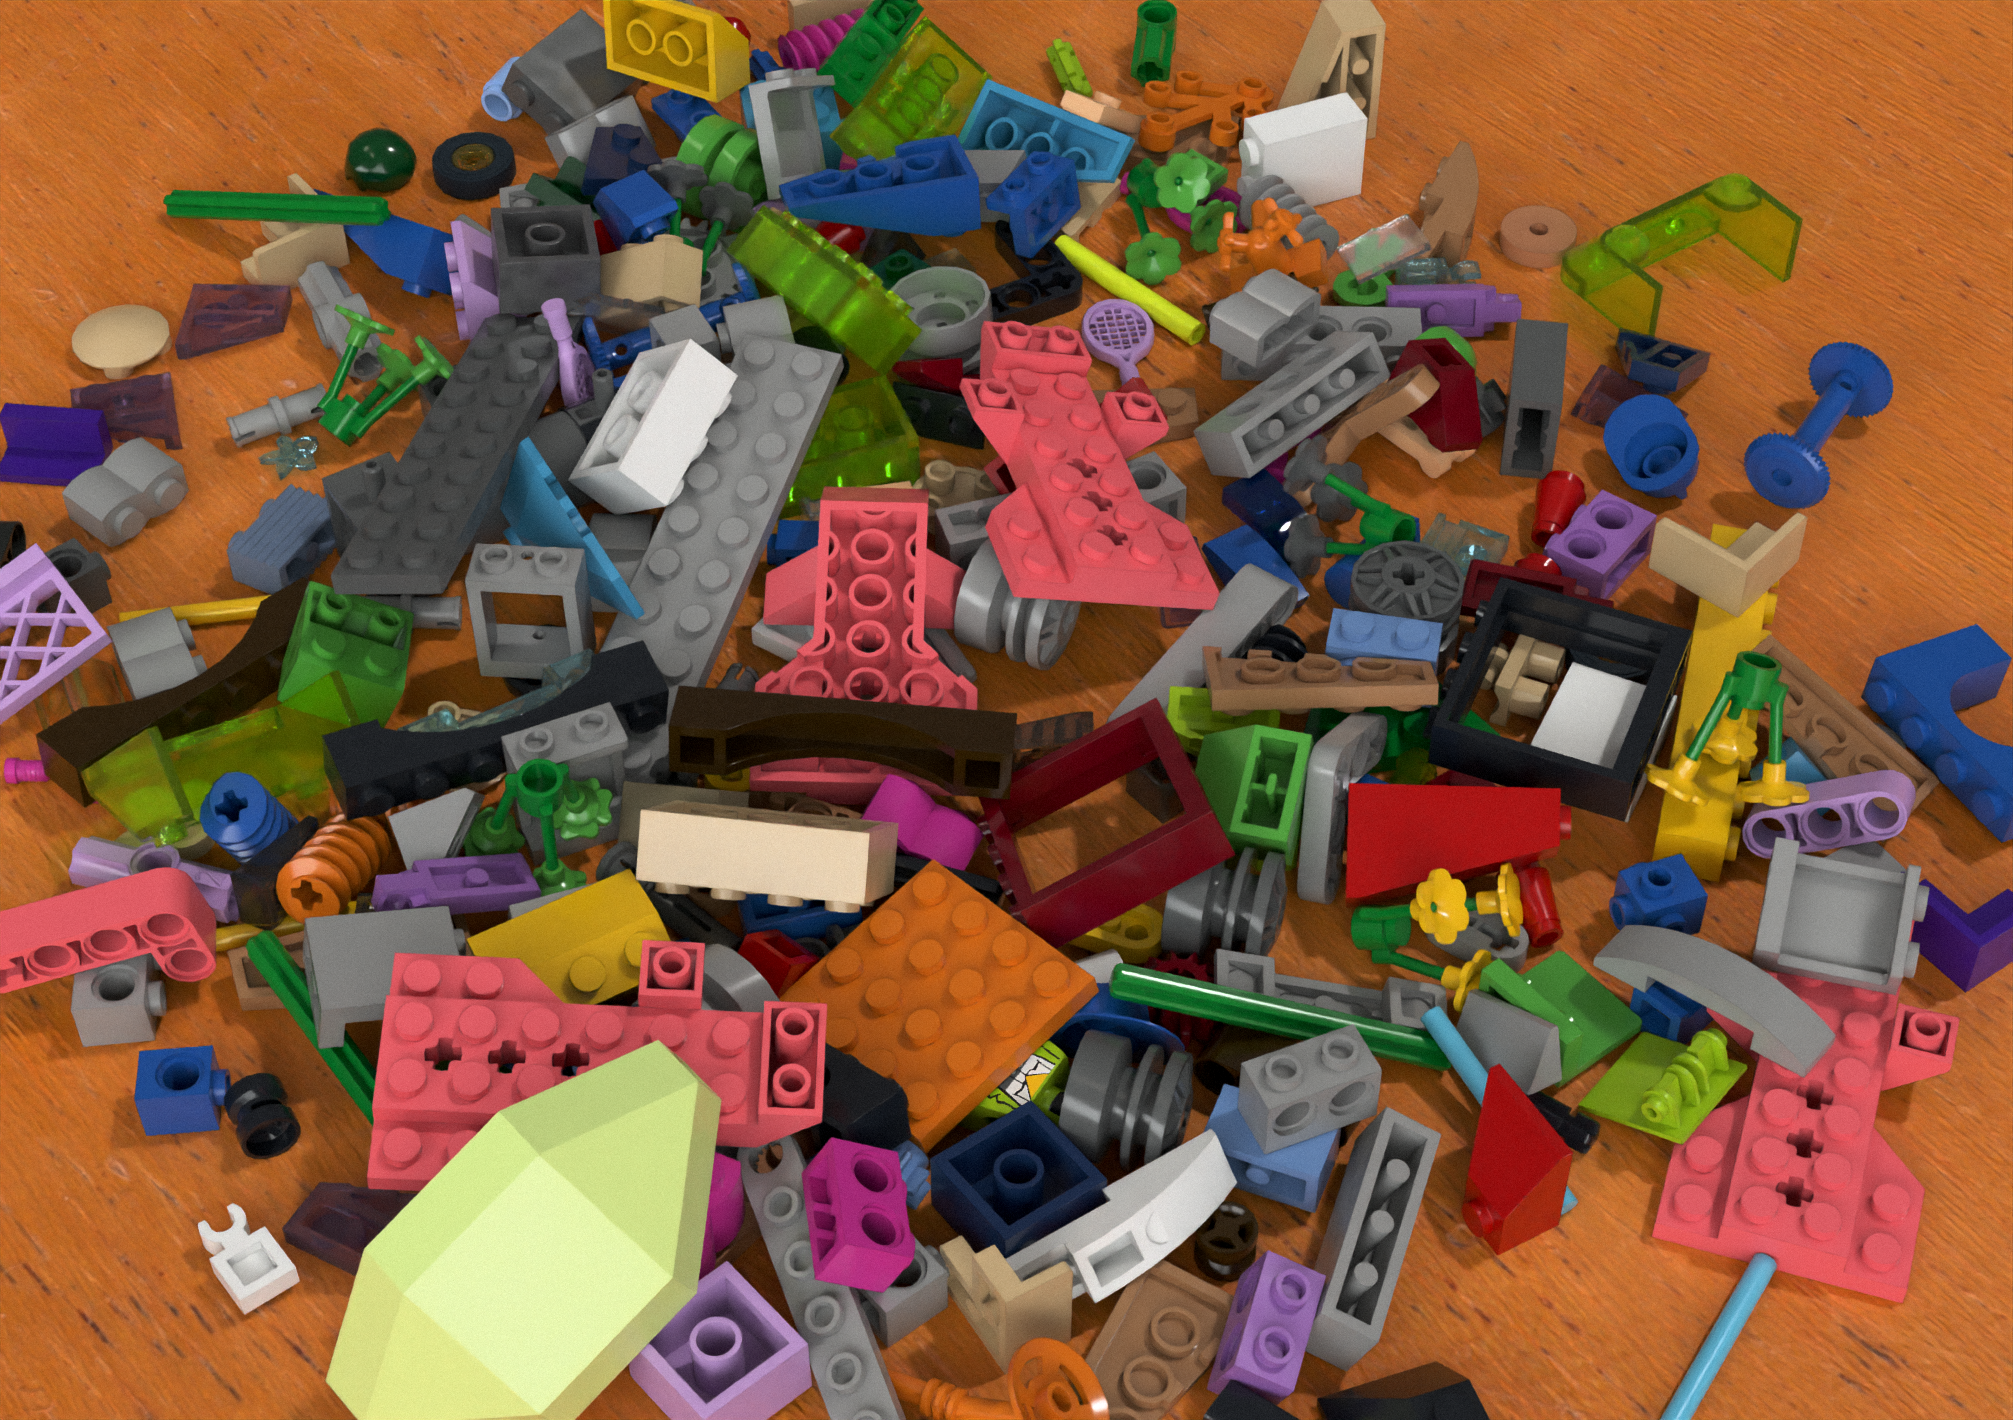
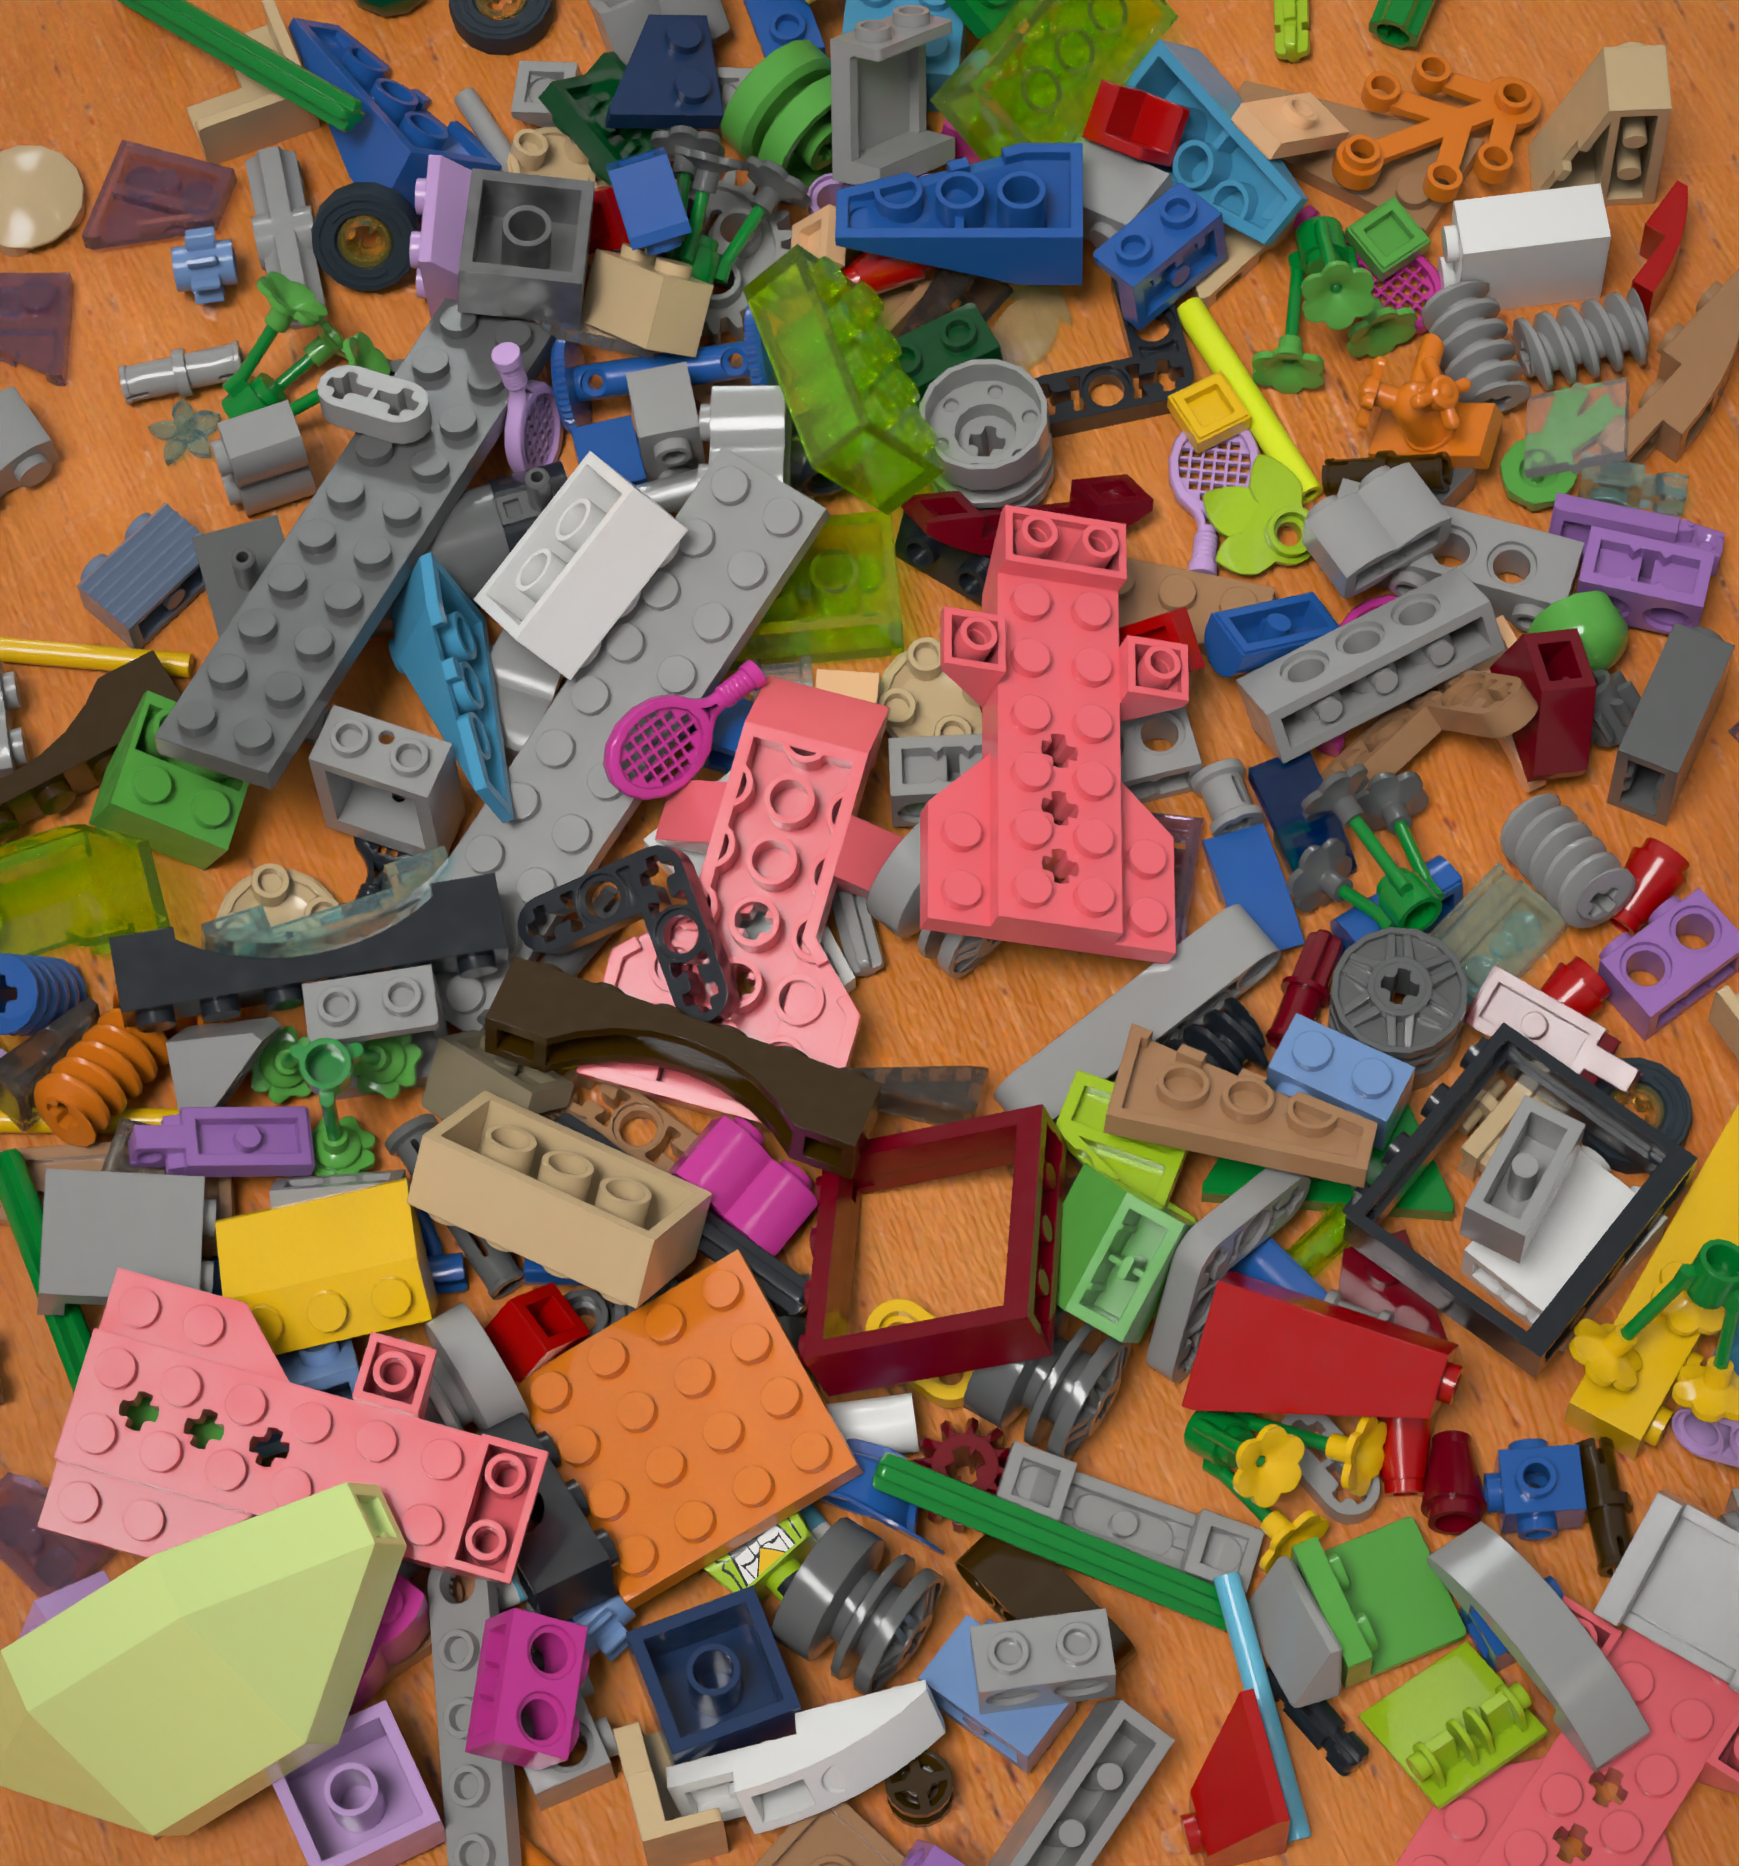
camera: 20 degrees right, 20 degrees up
(281, 345) = (204, 265): none -> medium blue gear
(362, 427) = (263, 459): none -> light grey brick
(432, 312) = (337, 225): none -> black bush
(452, 364) = (374, 404): none -> light grey beam
(771, 639) = (639, 902): none -> black beam
(811, 484) = (727, 694): none -> dark pink piece
(986, 130) = (1136, 123): none -> red panel
(1102, 294) = (1209, 412): none -> yellow tile
(1169, 350) = (1254, 514): none -> lime plate
(1196, 403) = (1262, 632): none -> blue brick
(1207, 514) = (1226, 796): none -> light grey bush
(1318, 619) = (1307, 987): none -> dark red axle
(1365, 202) = (1582, 338): none -> light grey piece
(1395, 151) = (1661, 248): none -> red slope
(1480, 316) = (1647, 578): none -> medium lavender brick
(1494, 496) = (1566, 862): none -> light grey piece
(1568, 655) = (1522, 1179): none -> light grey brick
(1584, 920) = (1453, 1486): none -> dark red cone
(1723, 917) = (1605, 1504): none -> dark brown pin

